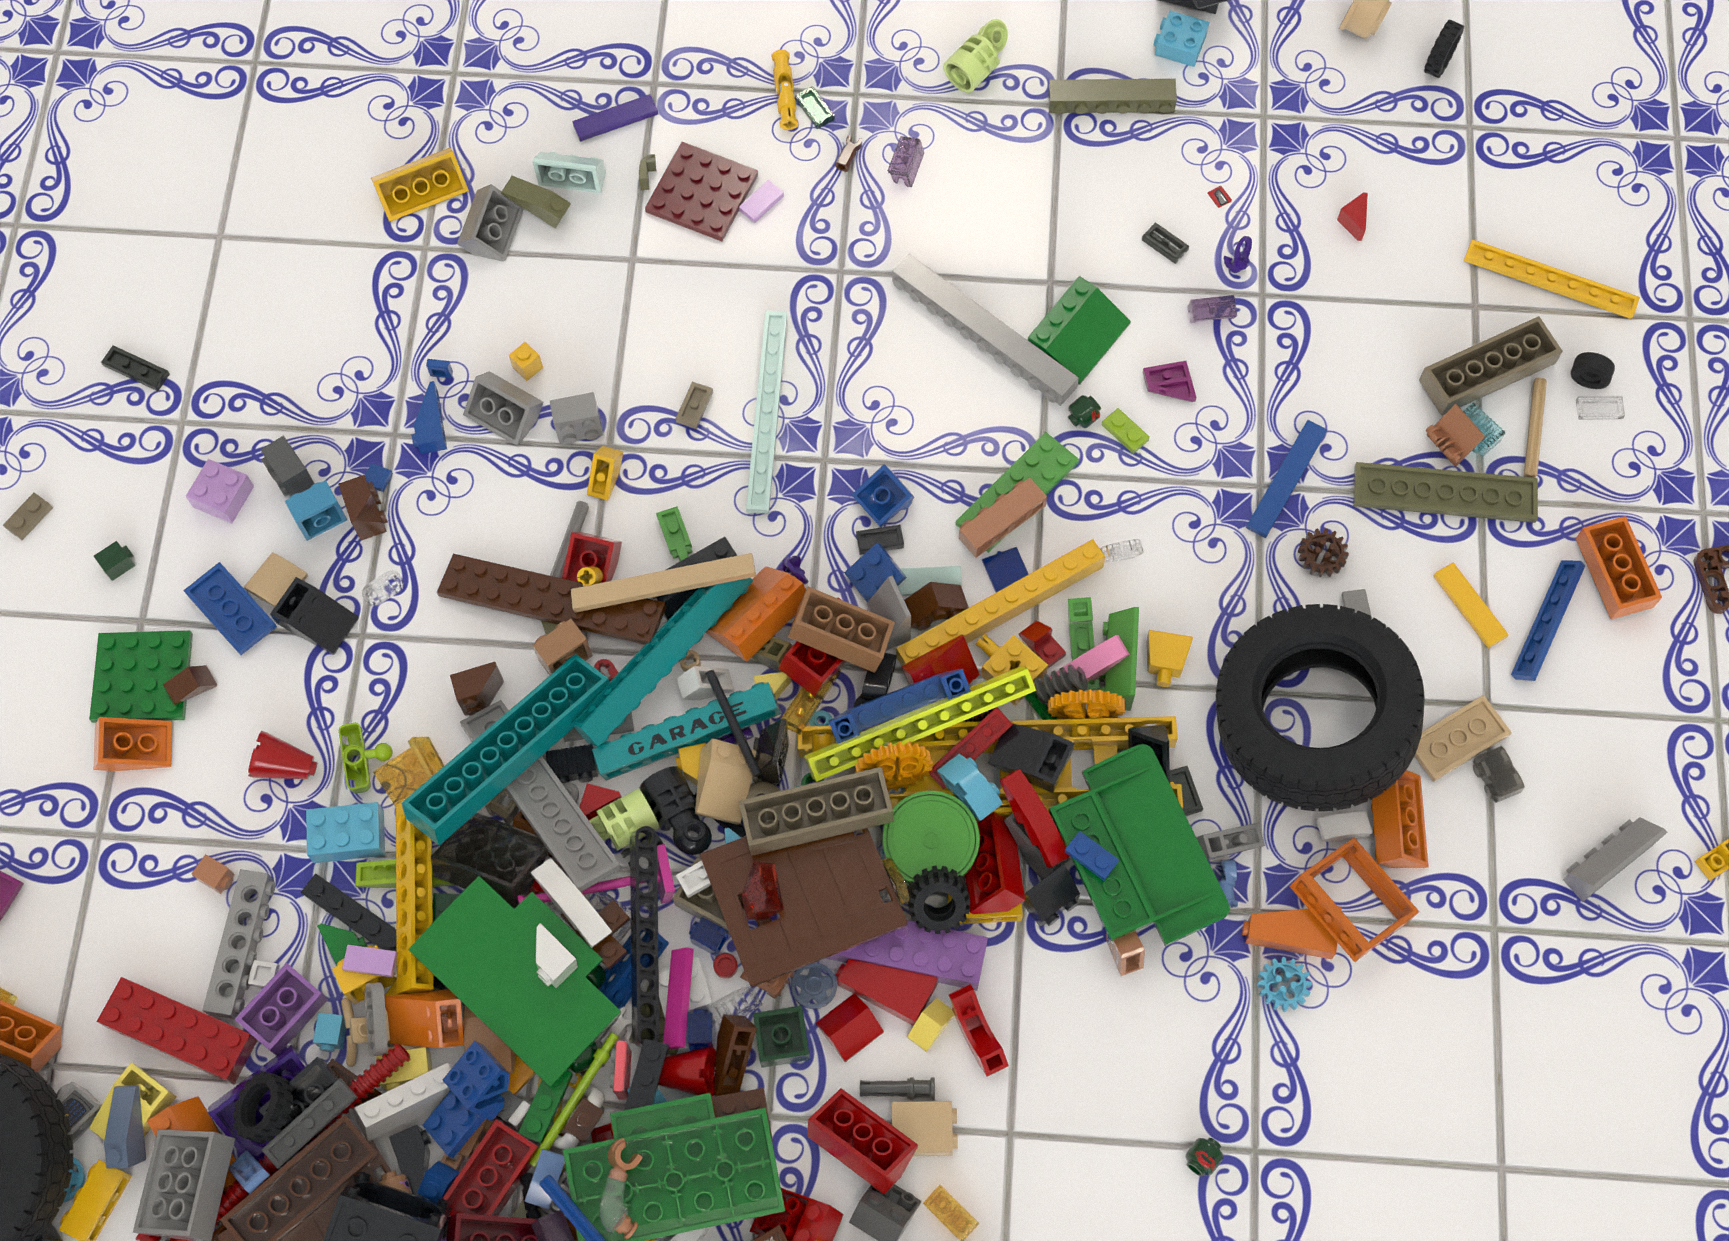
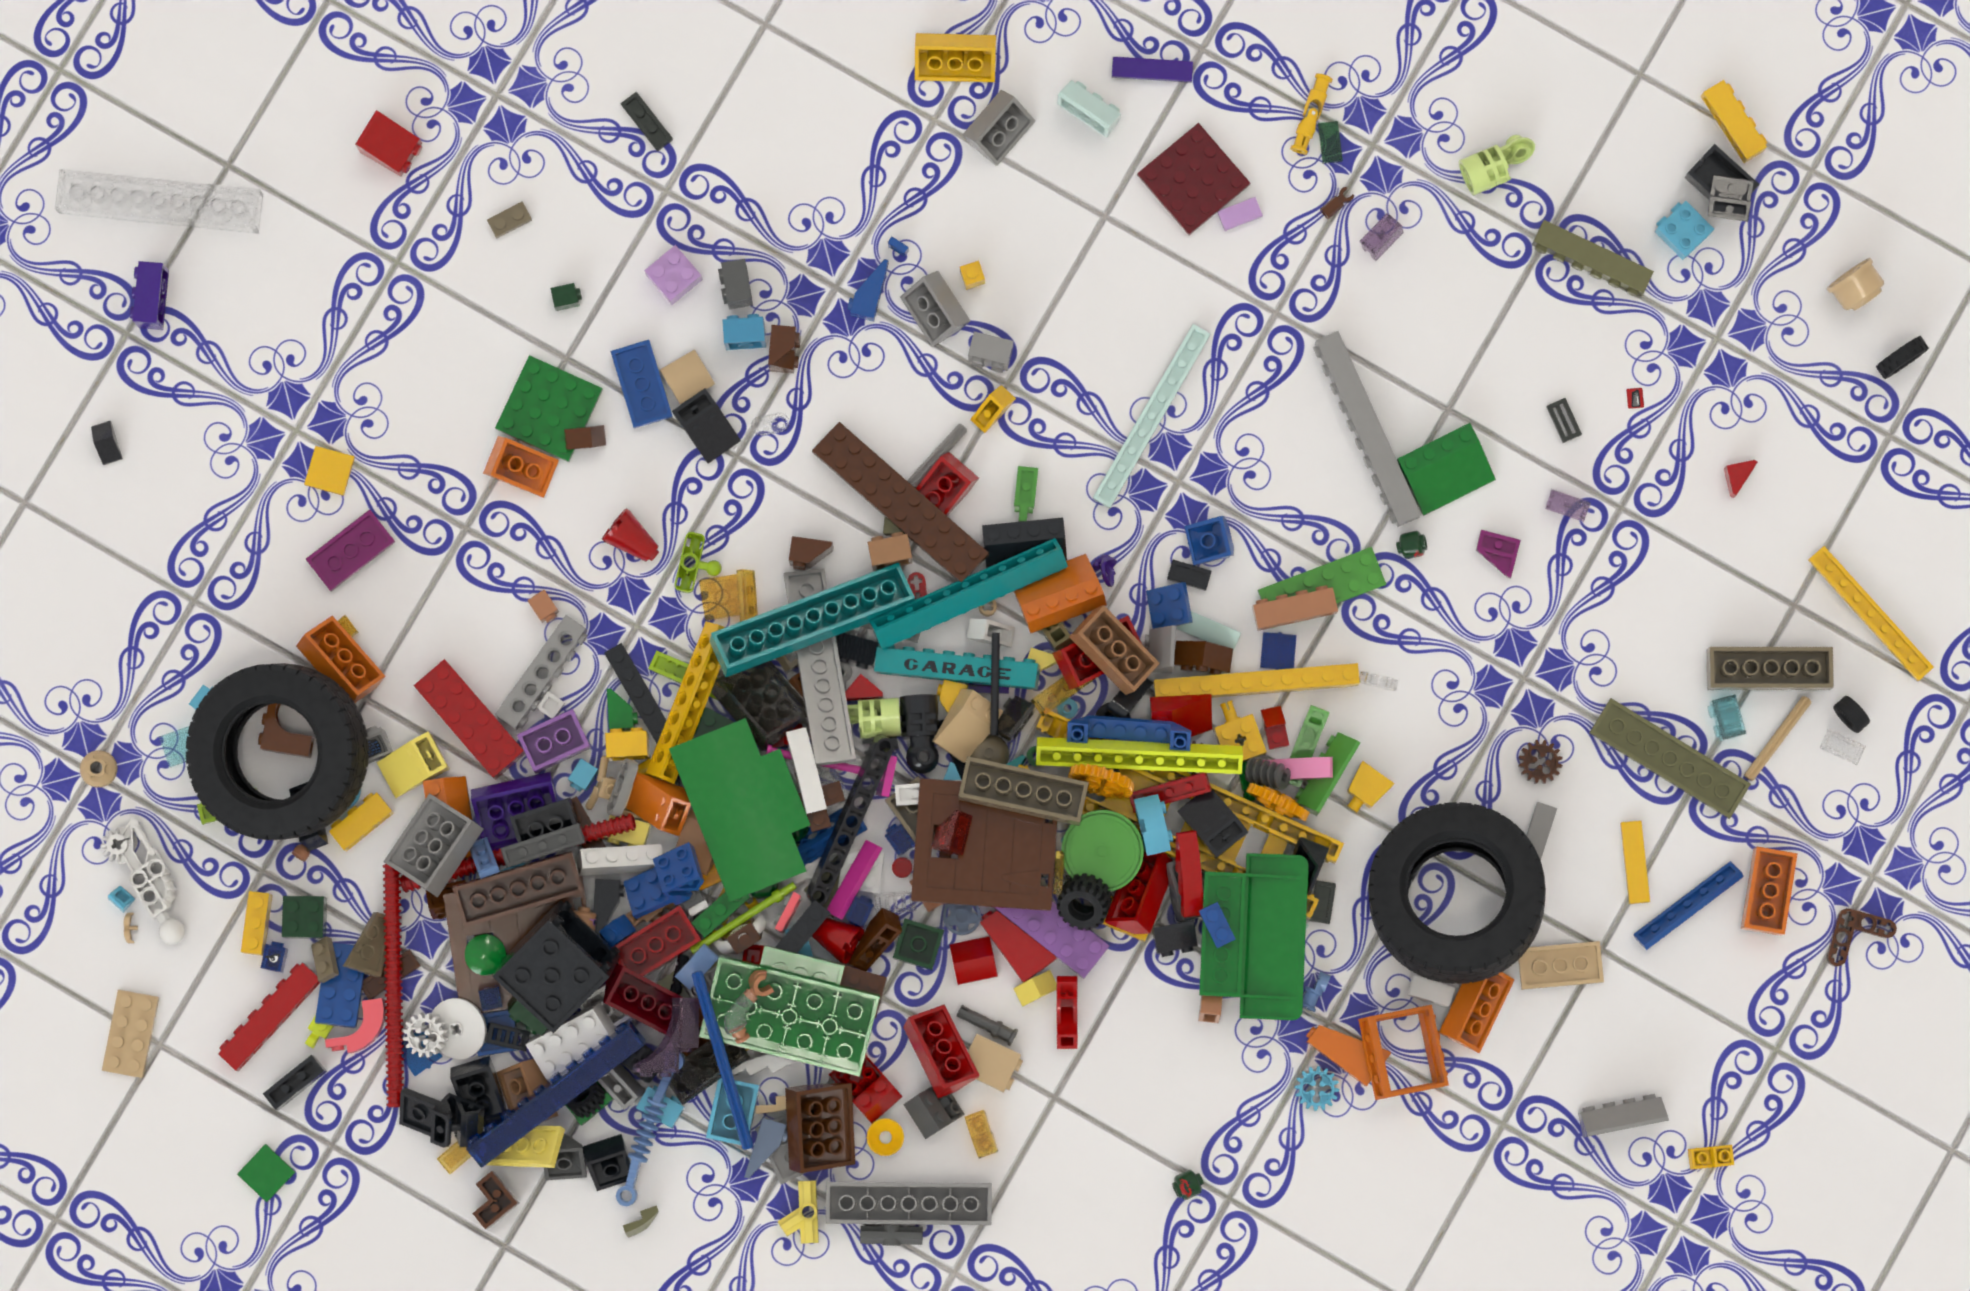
camera: 25 degrees right, 15 degrees up
(124, 1131) = (404, 780): sand blue slope -> none
(276, 1113) = (500, 809): black tyre -> none
(345, 832) = (657, 621): medium azure brick -> none
(369, 961) = (636, 741): lavender tile -> none
(379, 476) = (805, 321): blue tile -> none
(537, 200) = (1047, 126): olive slope -> none
(552, 958) = (772, 811): white slope -> none
(590, 576) = (939, 500): yellow piece -> none
(646, 165) = (1161, 131): olive slope -> none
(663, 582) = (994, 538): tan tile -> none
(694, 405) = (1093, 382): dark tan plate -> none
(1125, 430) = (1438, 576): lime plate -> none
(1231, 841) = (1334, 960): light grey slope -> none
(1240, 261) = (1616, 470): dark purple piece -> none
(1286, 479) = (1548, 682): blue tile -> none
(1455, 435) = (1703, 715): nougat hinge -> none
(1498, 774) = (1574, 1009): clear smoke brick -> none

